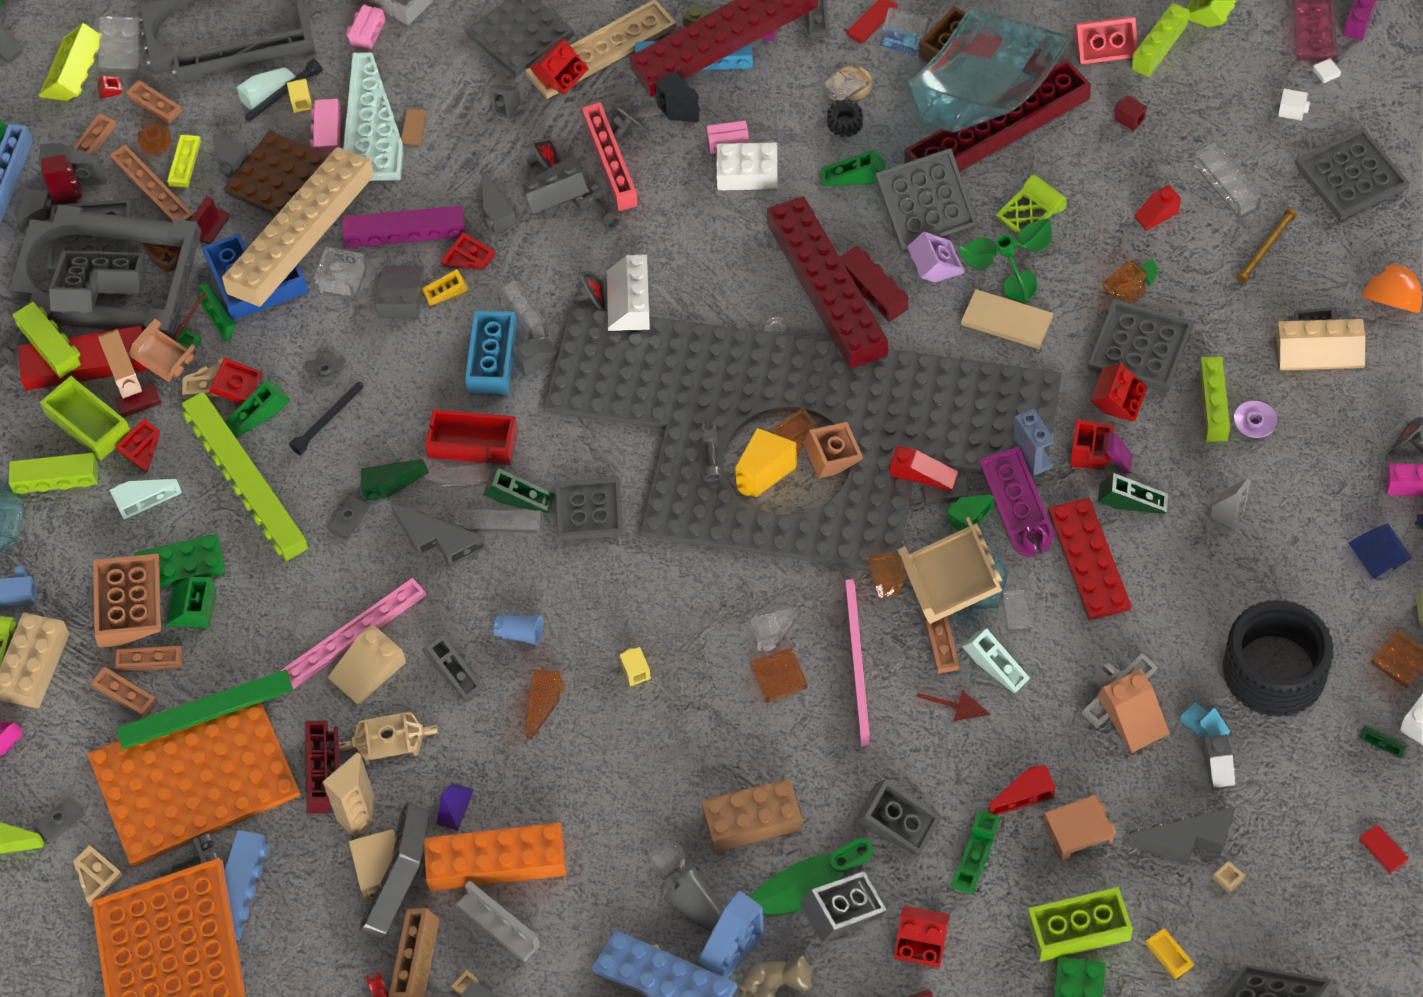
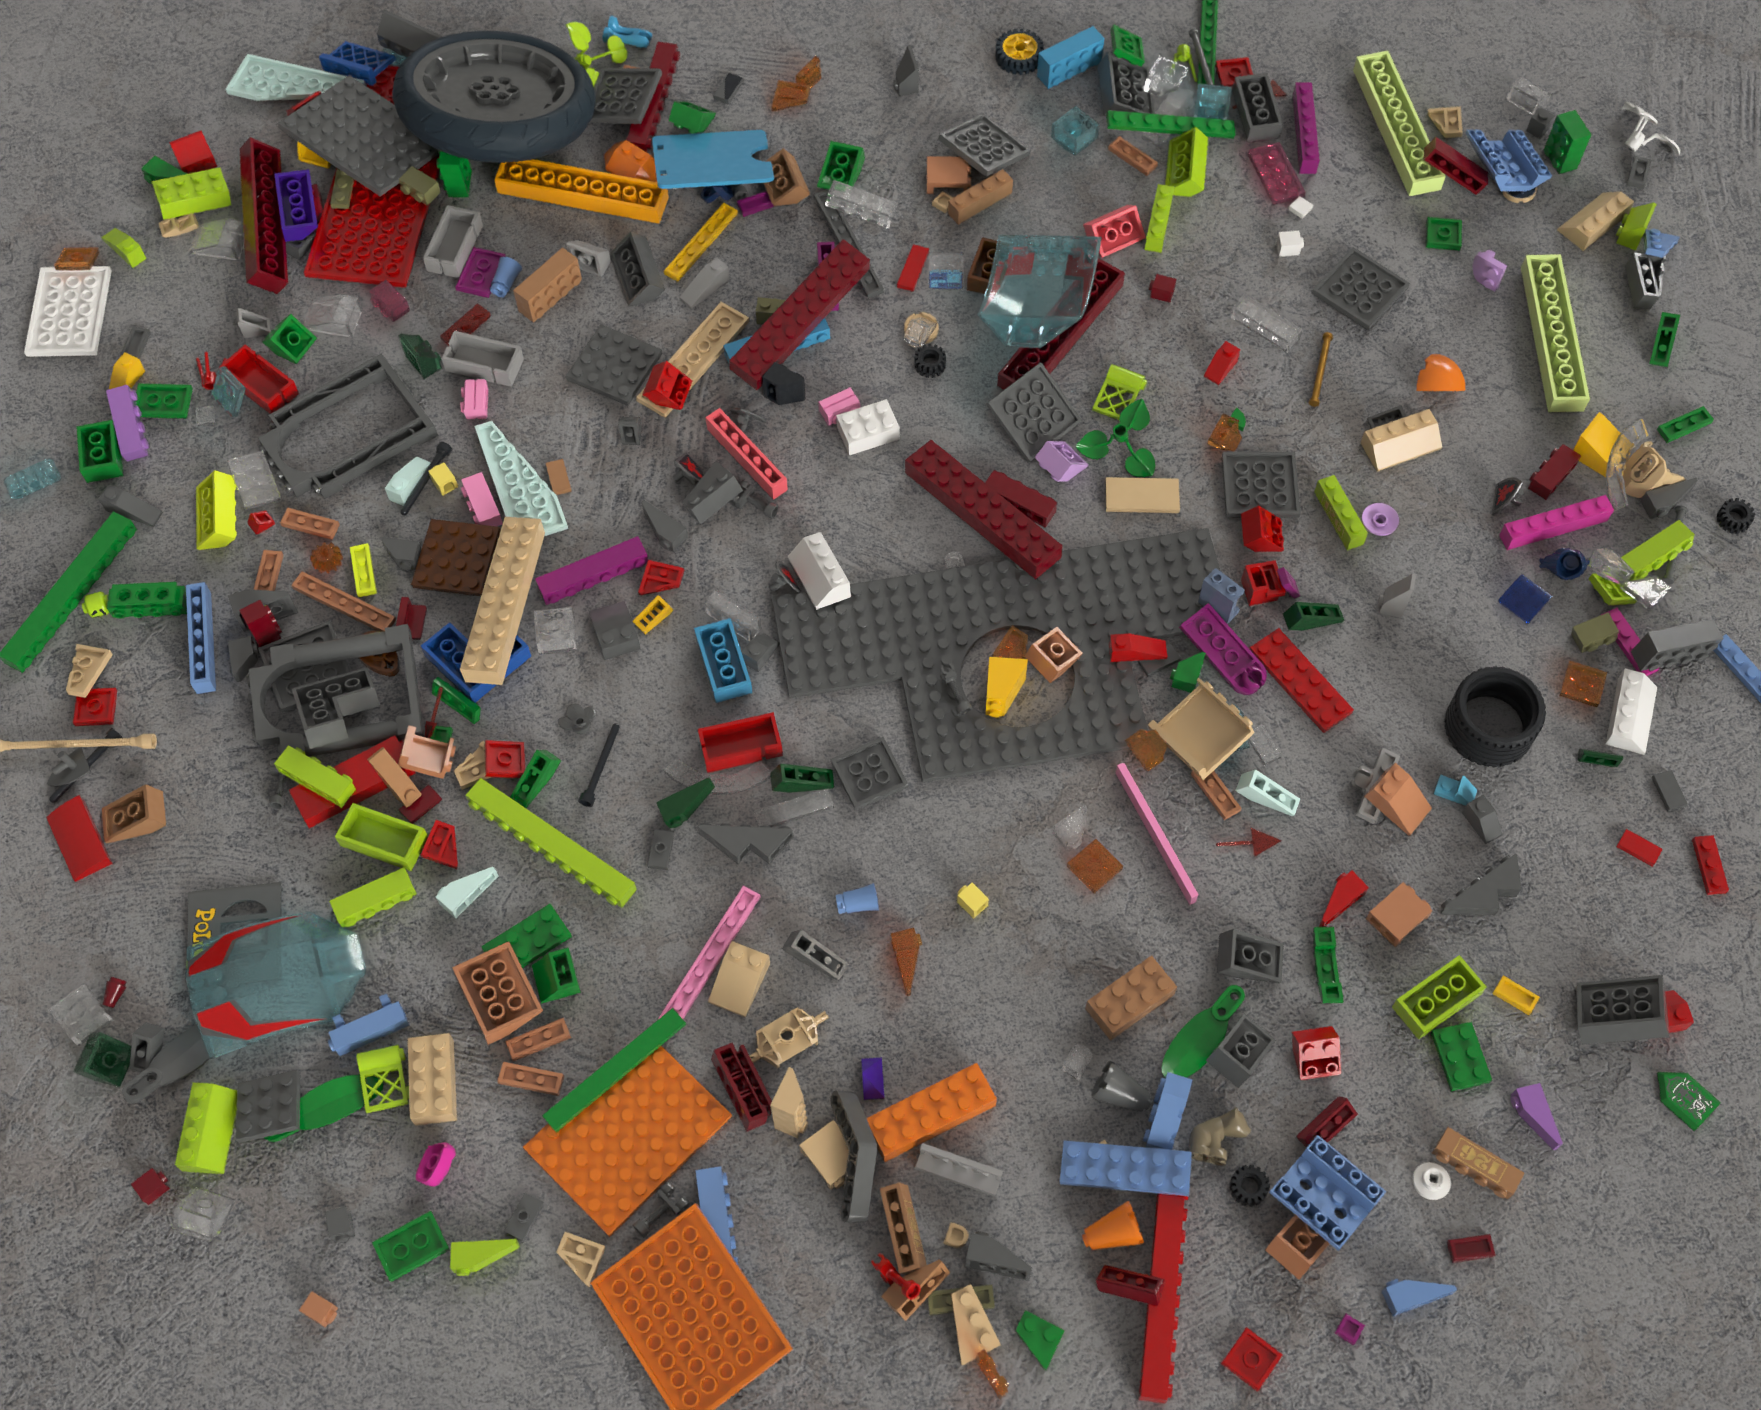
camera: 25 degrees left, 5 degrees up
(854, 170) = (959, 404): green slope -> none
(1228, 877) = (1532, 913): tan tile -> none

